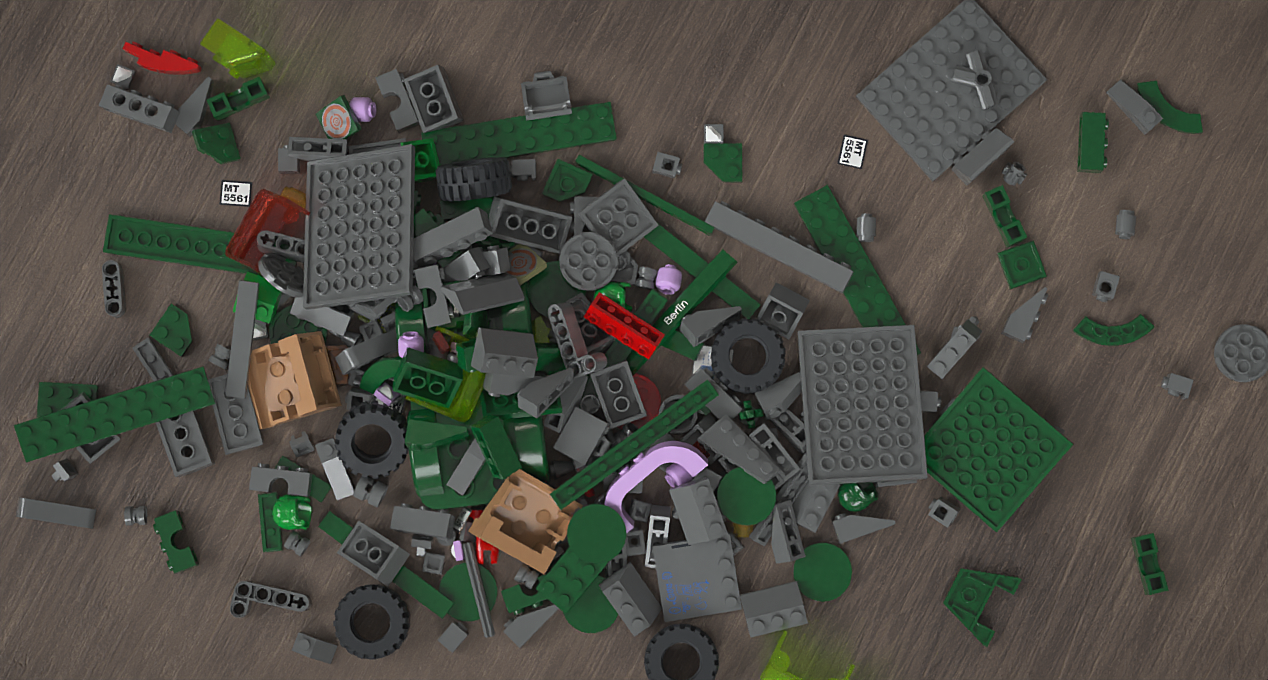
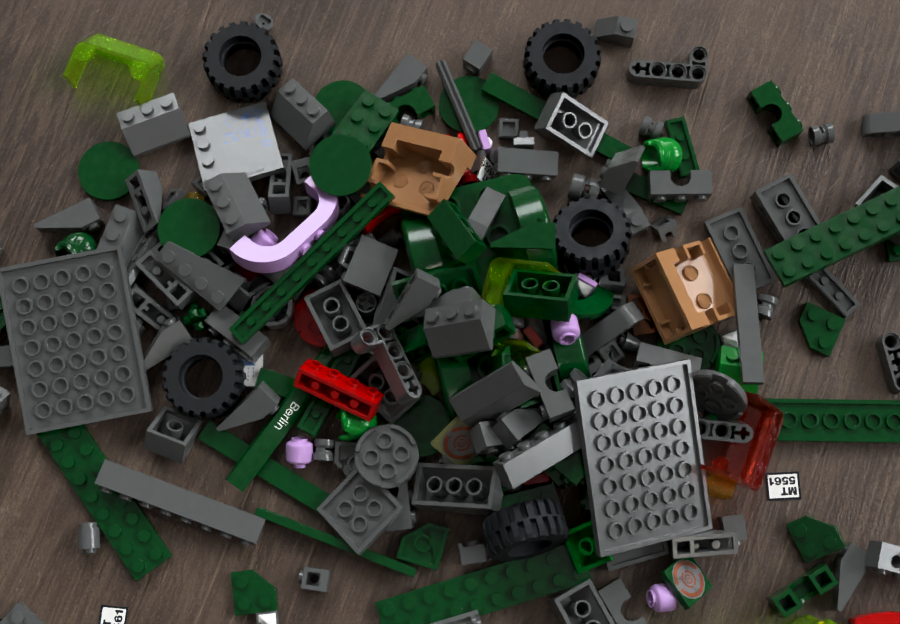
camera: 170 degrees right, 5 degrees down
(333, 501) = (619, 170): none -> dark grey slope

